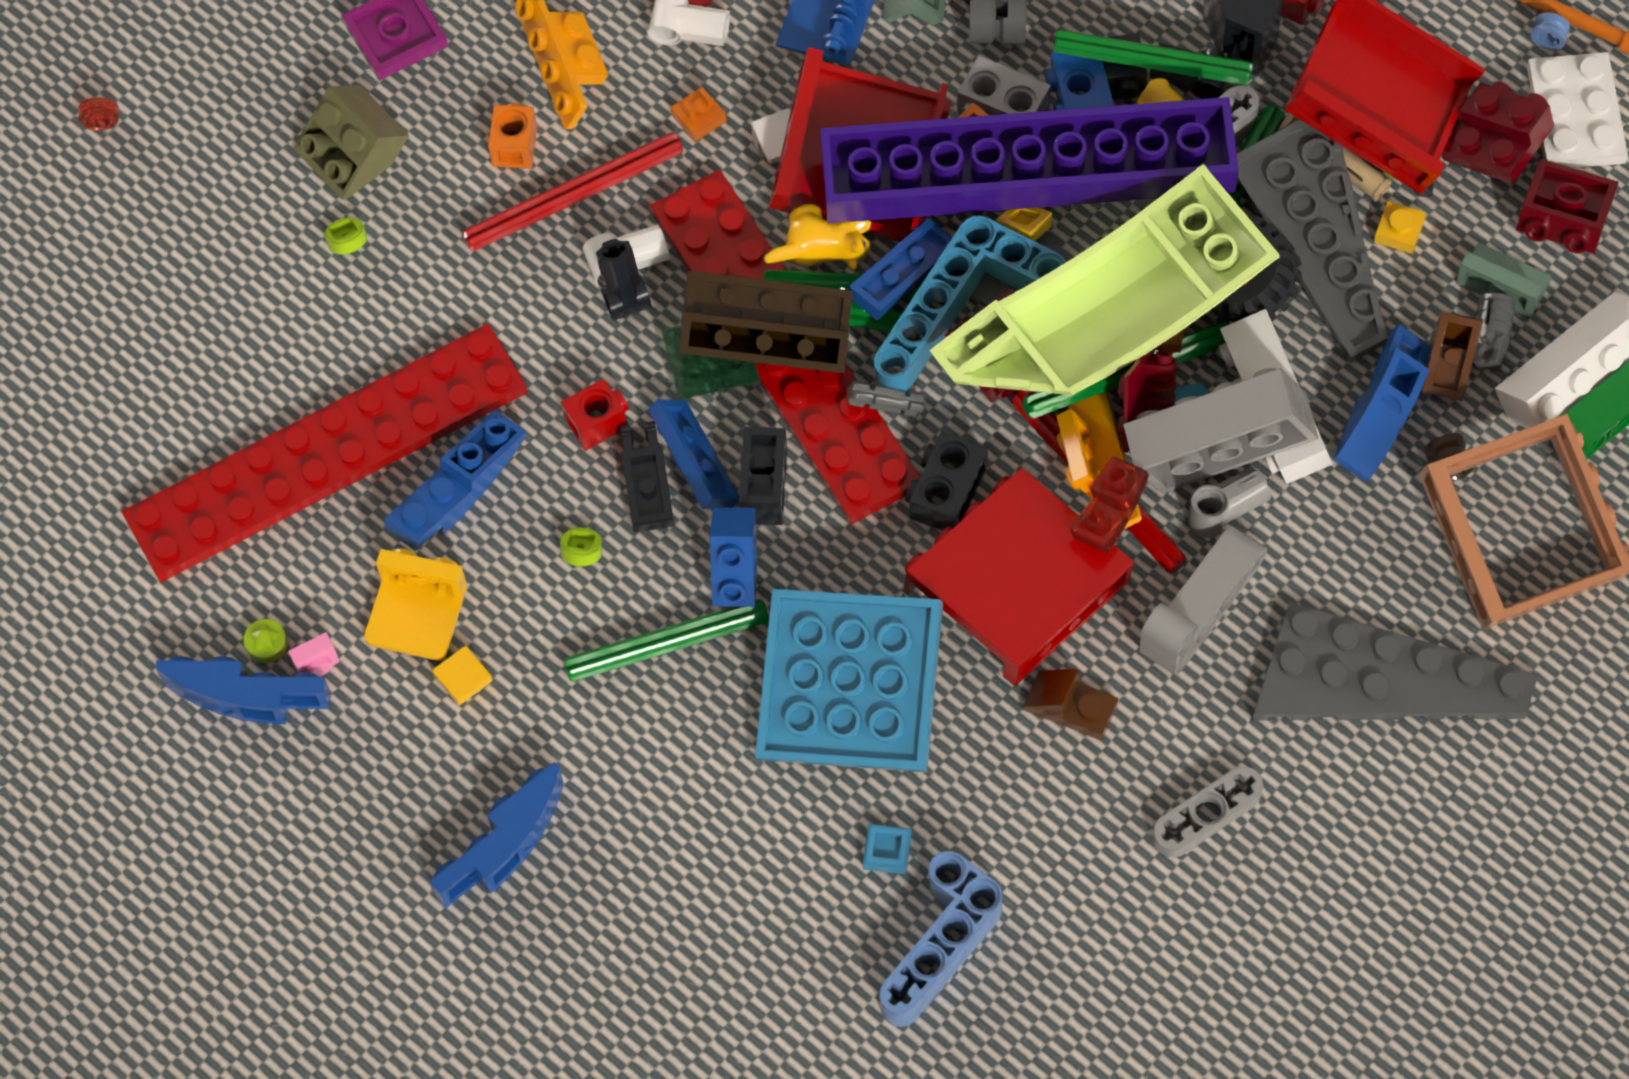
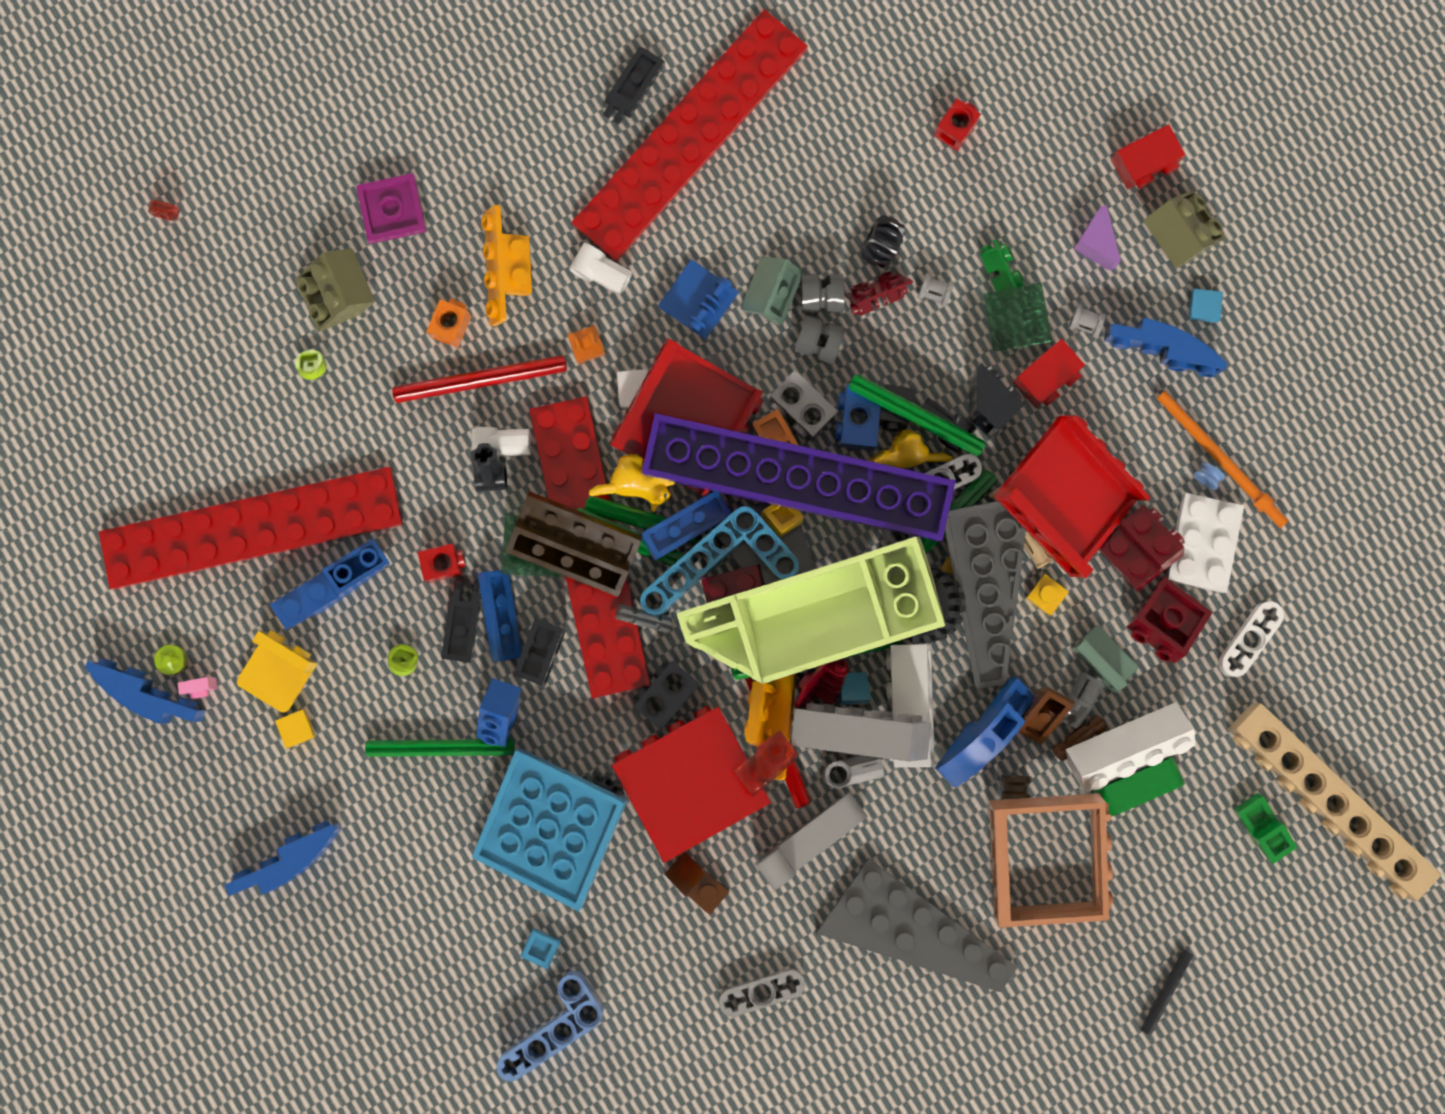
camera: 15 degrees right, 20 degrees up
(1489, 399) = (1083, 733): none -> reddish brown axle

